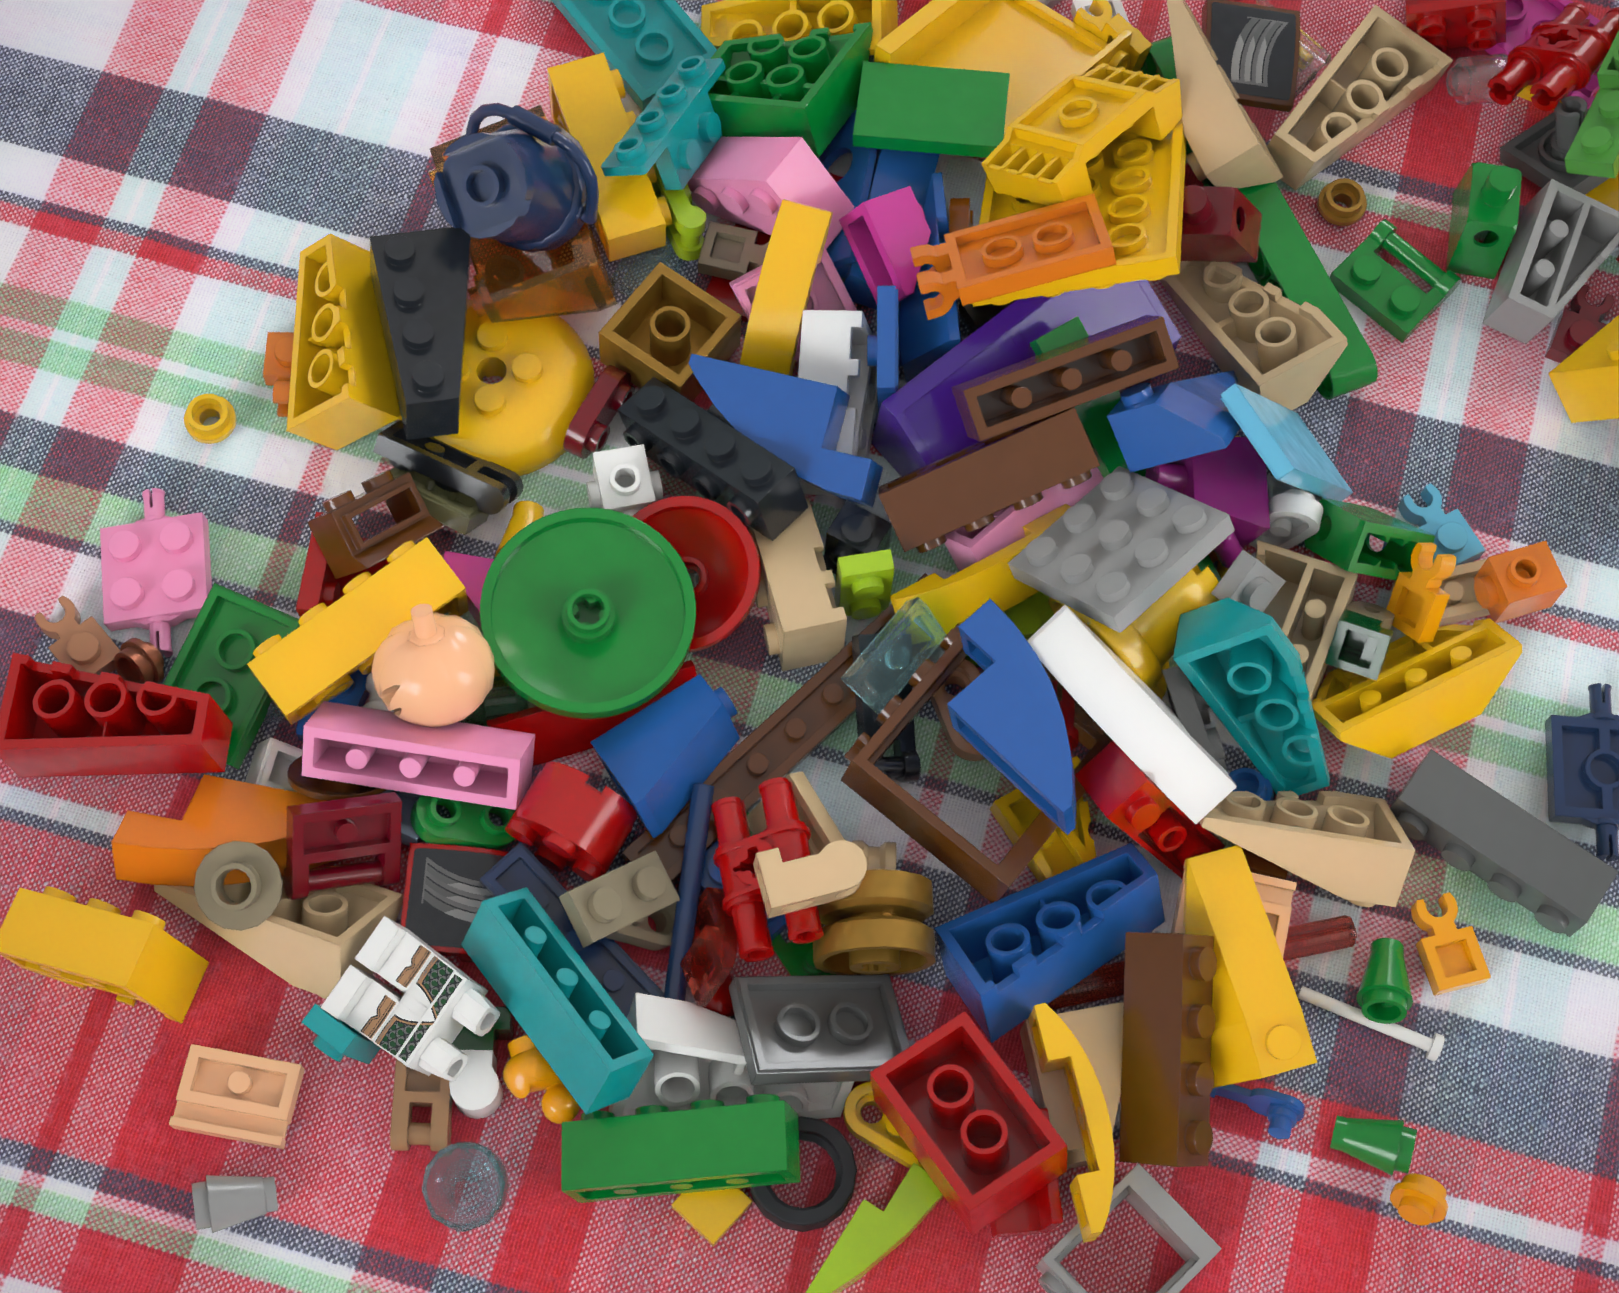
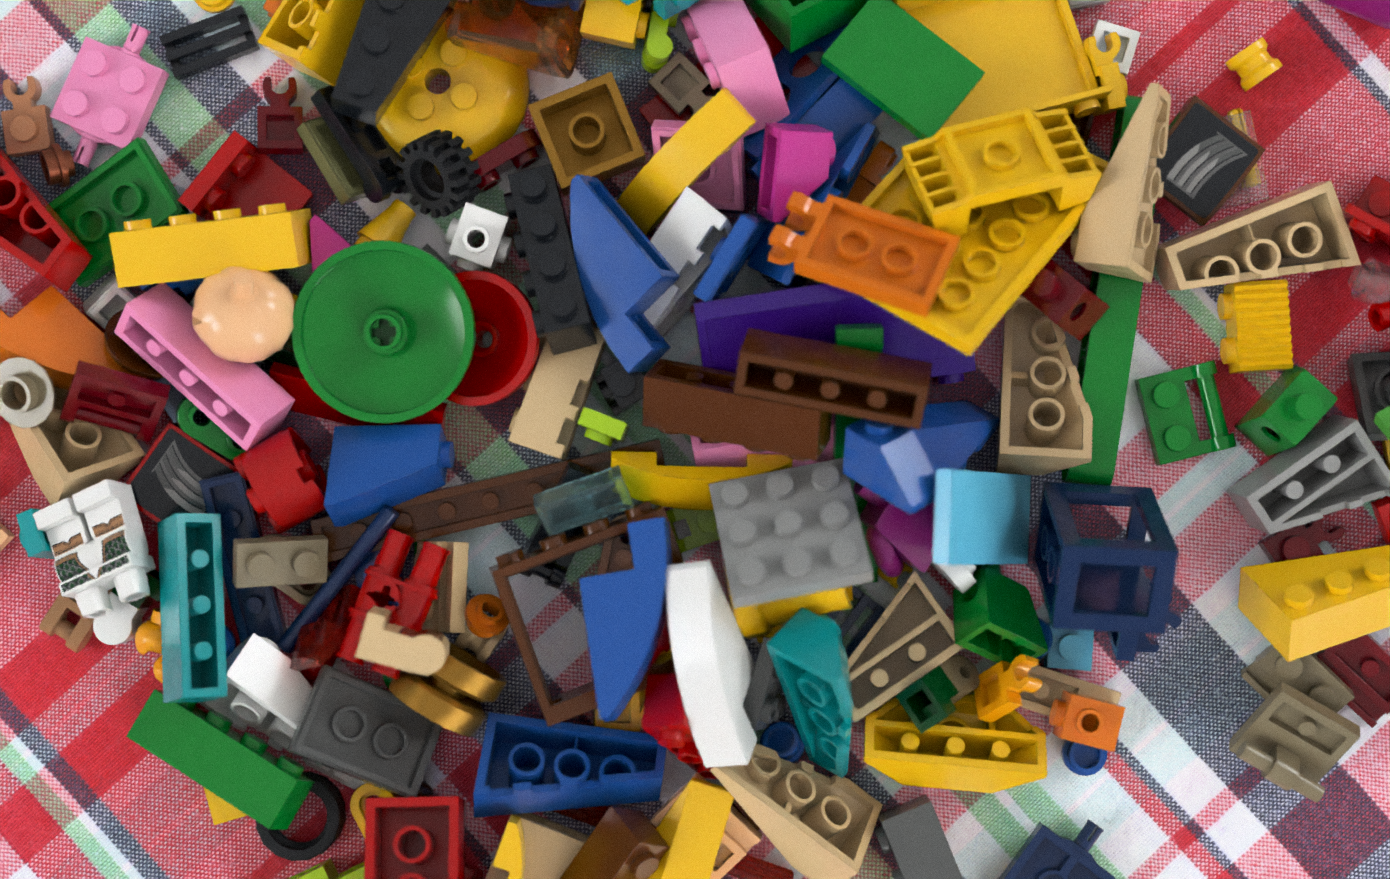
camera: 35 degrees right, 20 degrees up
(222, 456) = (201, 28): none -> black tile
(340, 539) = (269, 188): reddish brown window -> none
(343, 480) = (279, 121): none -> dark red plate
(465, 1186) = (71, 688): clear light blue hair -> none
(528, 466) = (454, 166): none -> black tyre
(869, 831) = (480, 623): none -> orange plate
(1249, 583) = (872, 609): light grey bracket -> none
(1346, 192) = (1204, 321): pearl gold plate -> none
(1388, 444) = (1103, 580): none -> dark blue piece
(1402, 170) = (1256, 326): none -> yellow brick
(1538, 632) = (1082, 758): none -> blue plate

